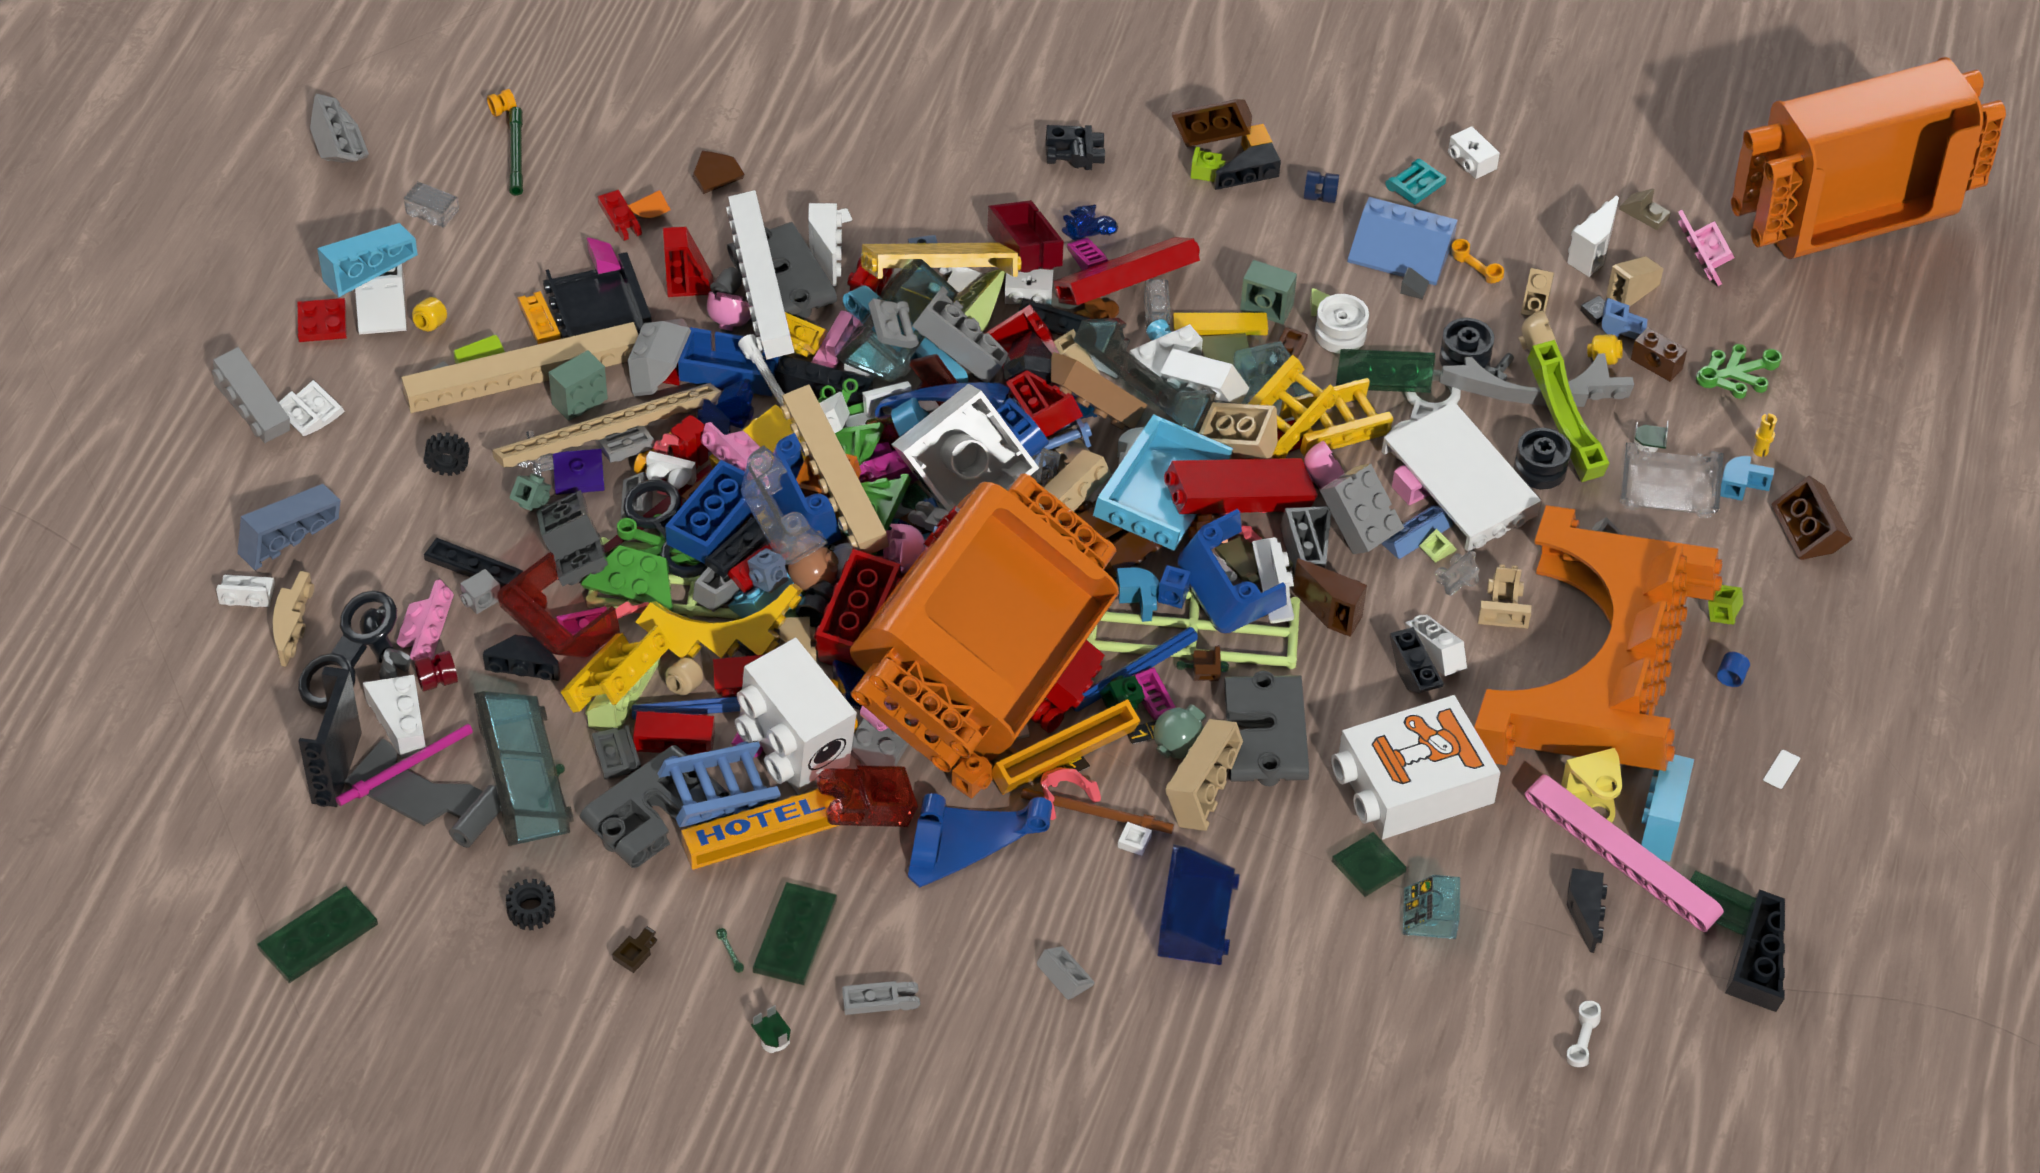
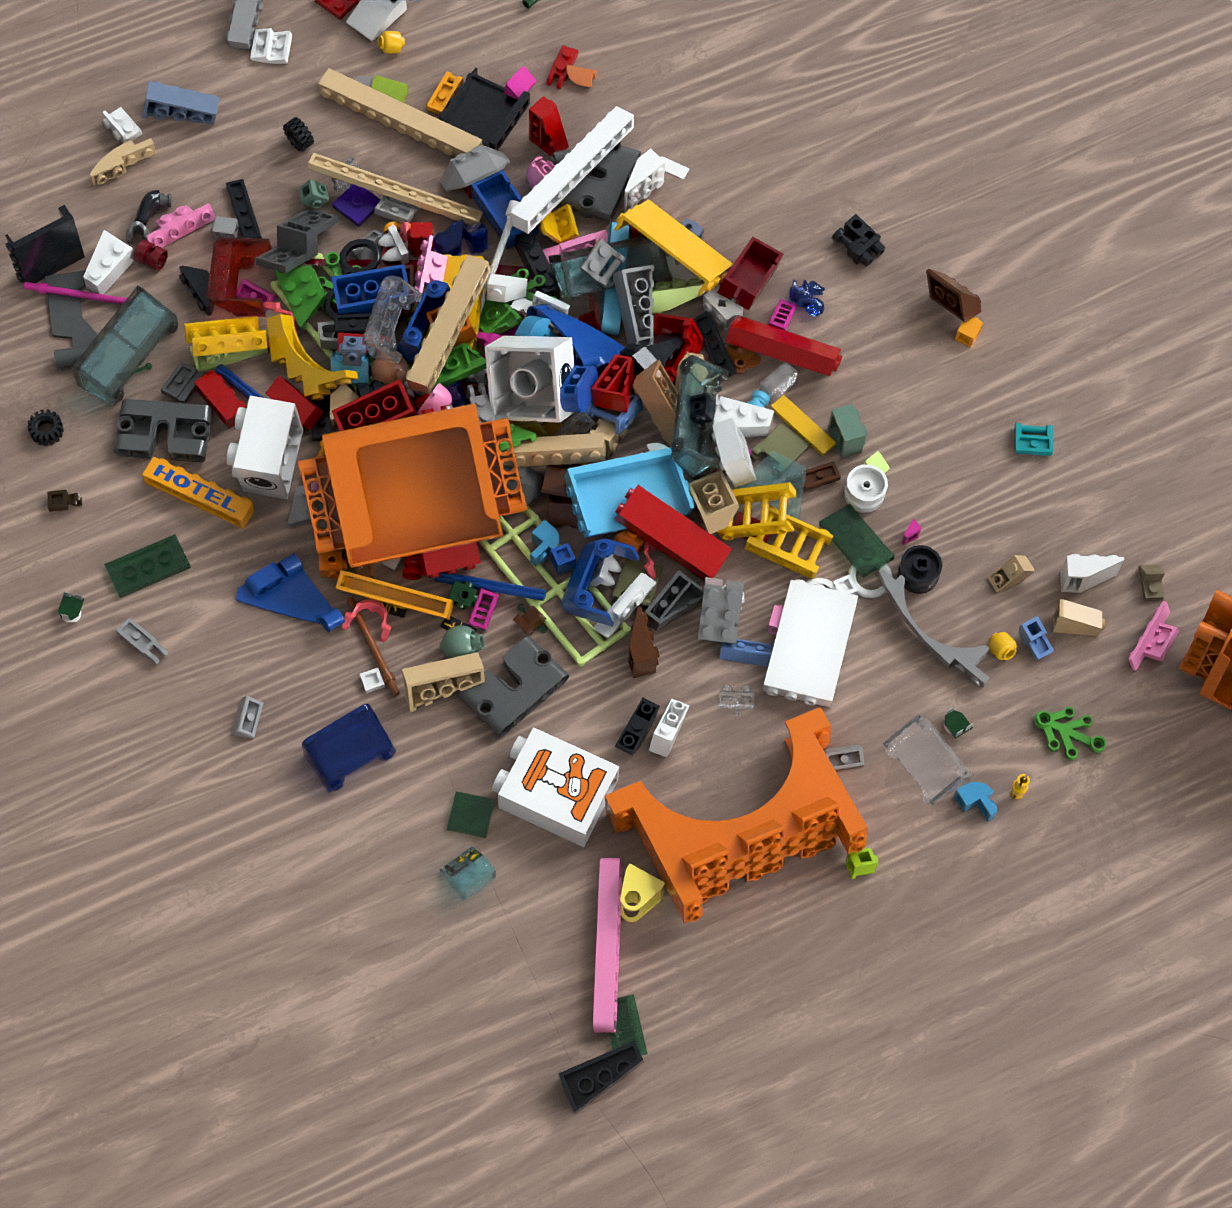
camera: 45 degrees right, 15 degrees up
(351, 644) = (122, 204): black bar -> none
(578, 385) = (408, 152): sand green brick -> none
(684, 676) = (263, 371): tan head -> none
(716, 171) = (643, 83): reddish brown slope -> none
(717, 807) = (183, 458): medium blue fence -> none
(722, 935) = (114, 532): clear green hinge -> none
(868, 796) = (257, 523): clear red brick -> none
(1136, 365) = (702, 408): none -> black brick
(1205, 165) = (921, 319): lime brick -> none
(1252, 165) = (944, 342): black slope -> none
(1322, 465) = (740, 565): bright pink cylinder -> none
(1329, 188) = (968, 392): dark blue wheel -> none
(1402, 237) = (973, 470): medium blue slope -> none
(1414, 284) = (946, 502): dark grey slope -> none
(1418, 326) = (912, 532): none -> dark pink slope
(1437, 546) = (749, 672): yellowish green slope -> none
(1461, 252) = (1001, 508): light orange bar -> none
(1473, 152) = (1093, 460): white brick -> none
(1501, 367) = (917, 595): dark grey bar -> none
(1505, 586) = (750, 729): tan tile -> none
(1536, 331) = (972, 601): tan cylinder -> none
(1542, 458) = (872, 676): black wheel -> none
(1552, 380) = (917, 662): lime arch -> none
(1585, 906) = (554, 948): black slope -> none
(1589, 1018) = (435, 1028): white bar -> none
(1594, 309) = (1032, 612): tile -> none
(1658, 354) = (1029, 678): reddish brown brick -> none
(1666, 806) = (665, 941): medium azure wedge -> none
(1733, 669) = (812, 904): blue piece -> none
(1781, 769) = (766, 987): white sticker -> none
(1811, 520) = (982, 863): reddish brown slope -> none

